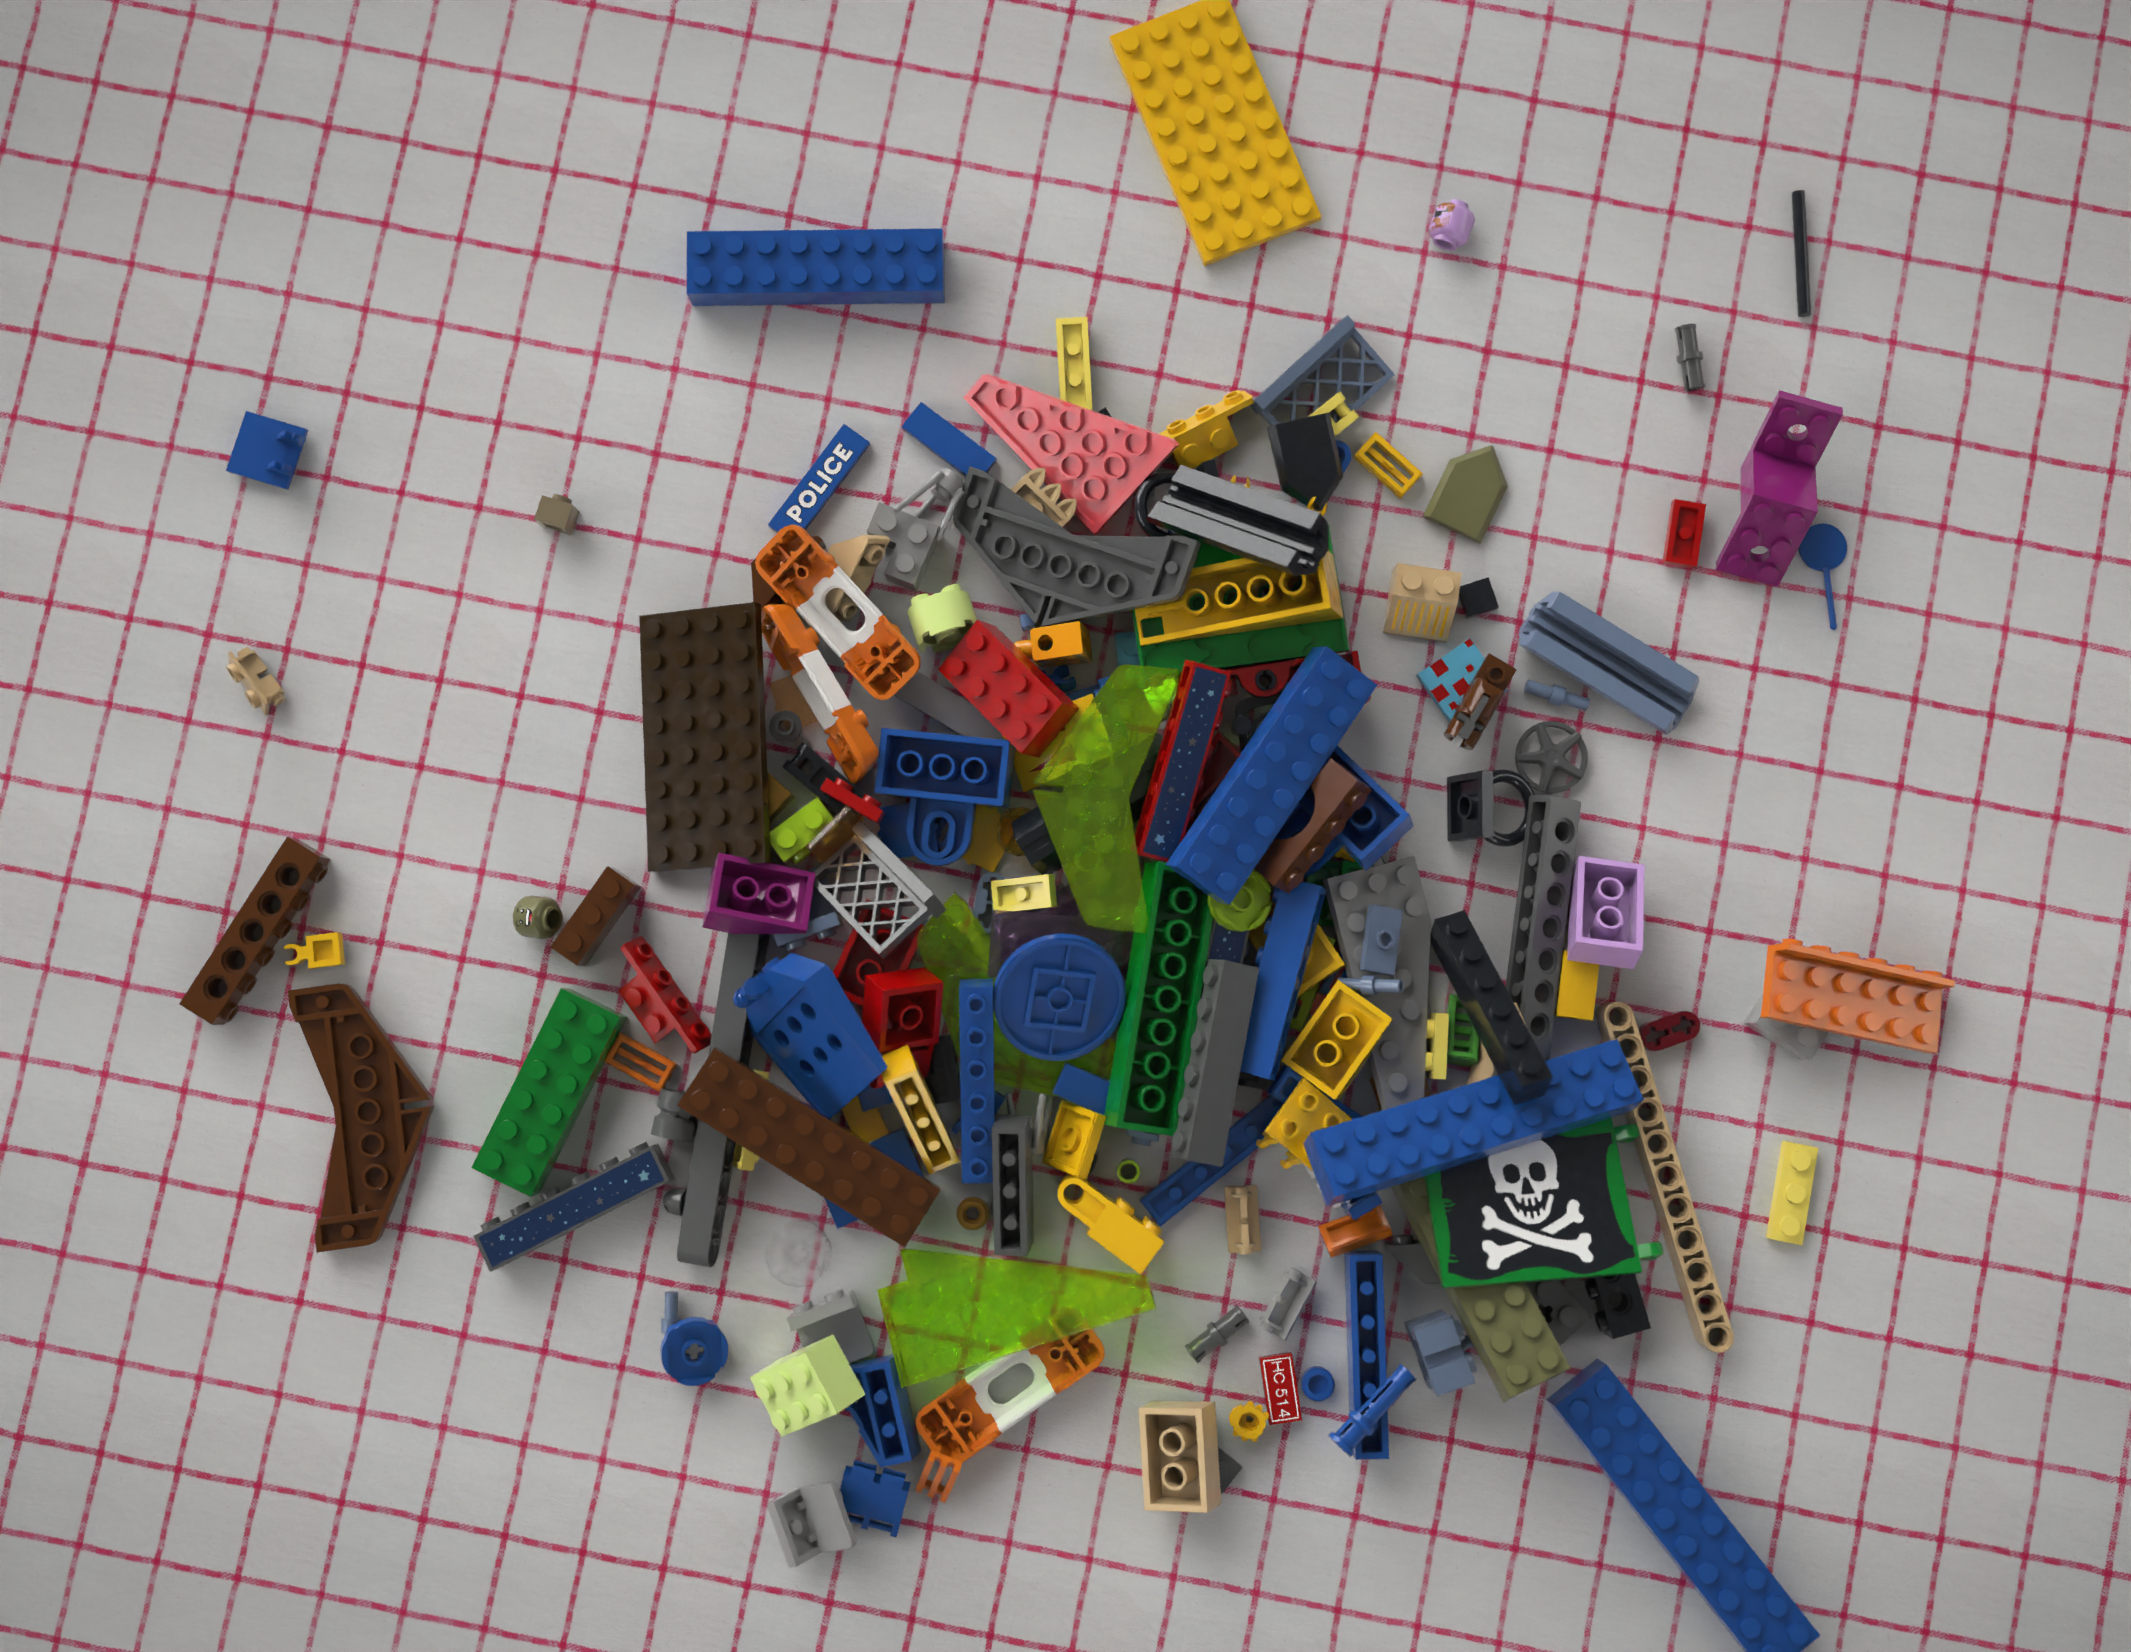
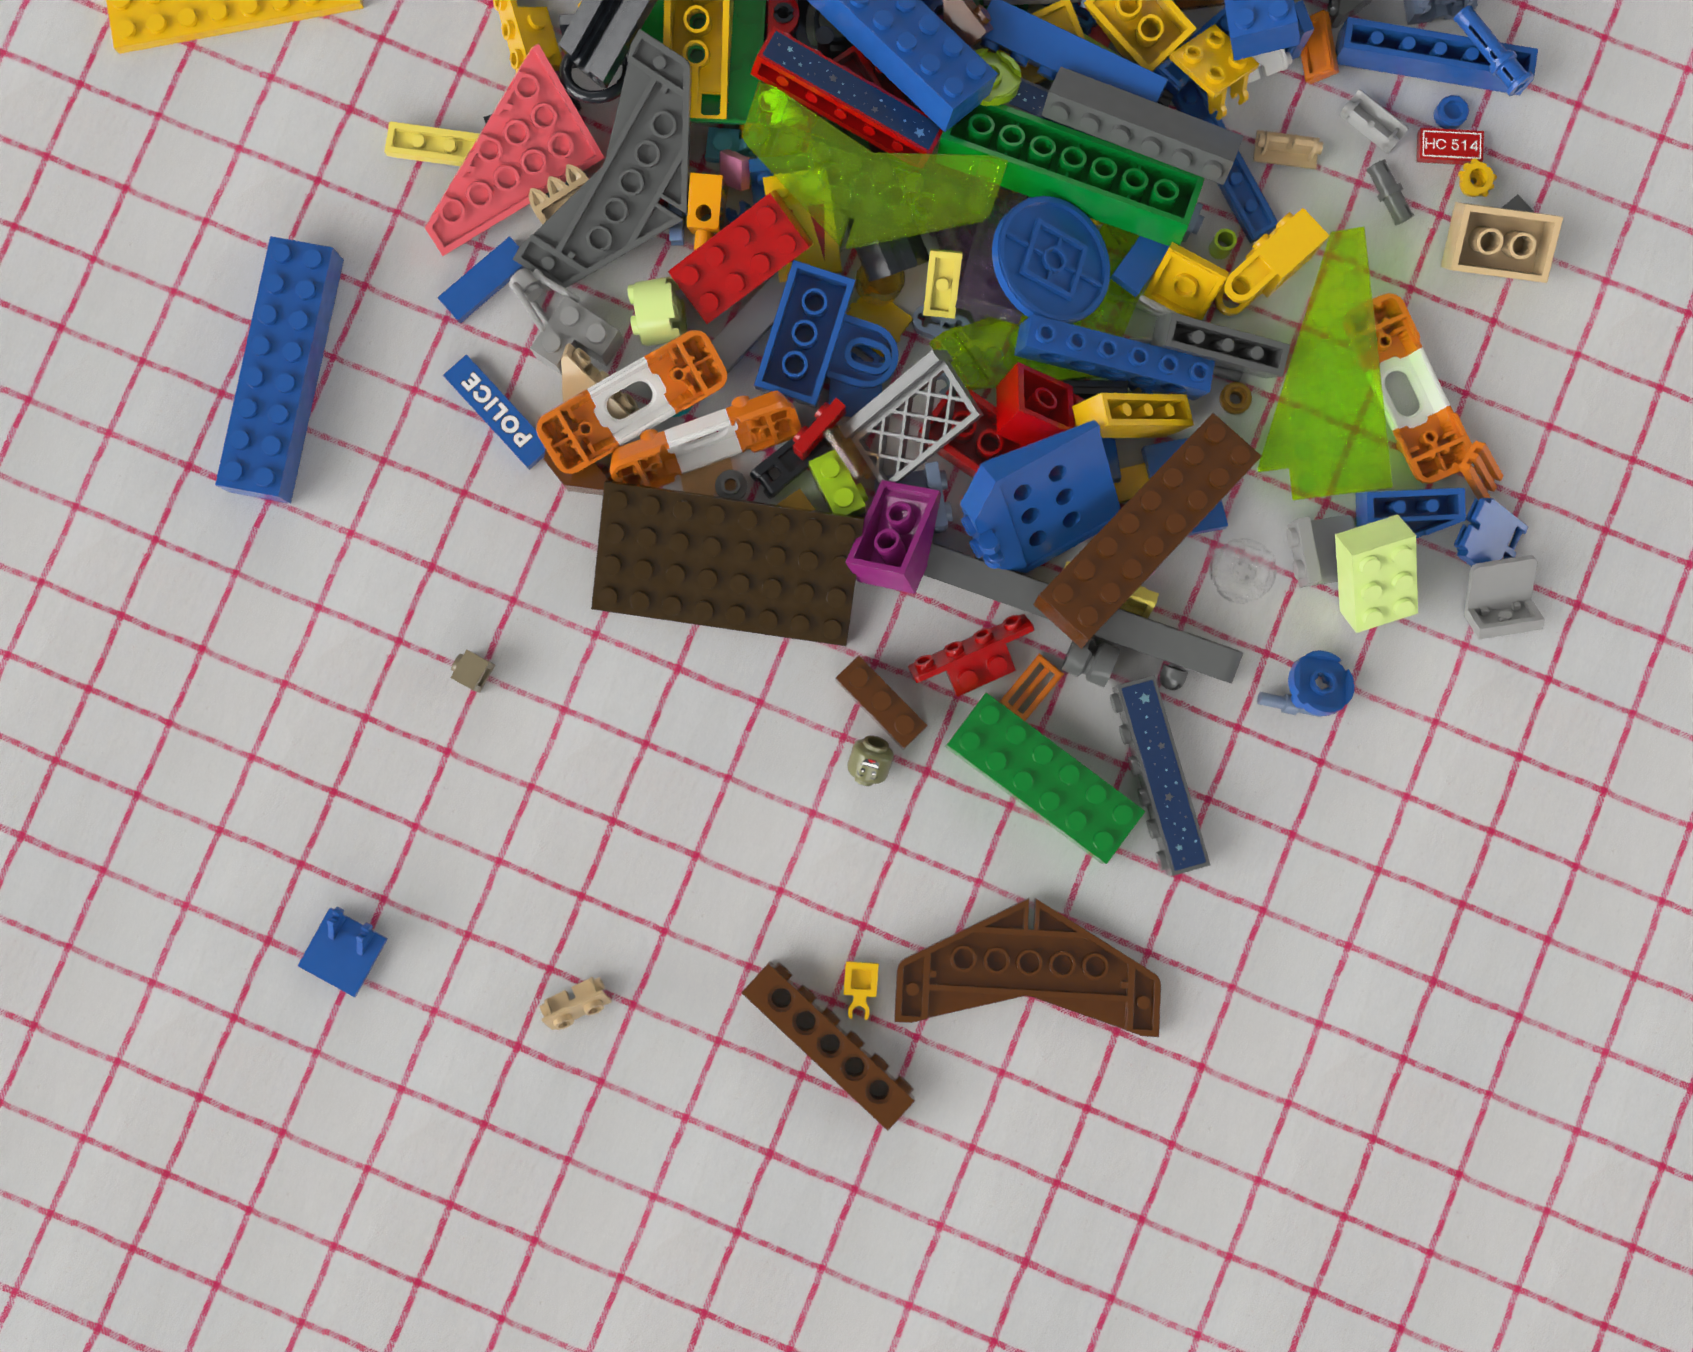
camera: 75 degrees left, 0 degrees up
(1104, 664) = (735, 169): none -> bright pink tile

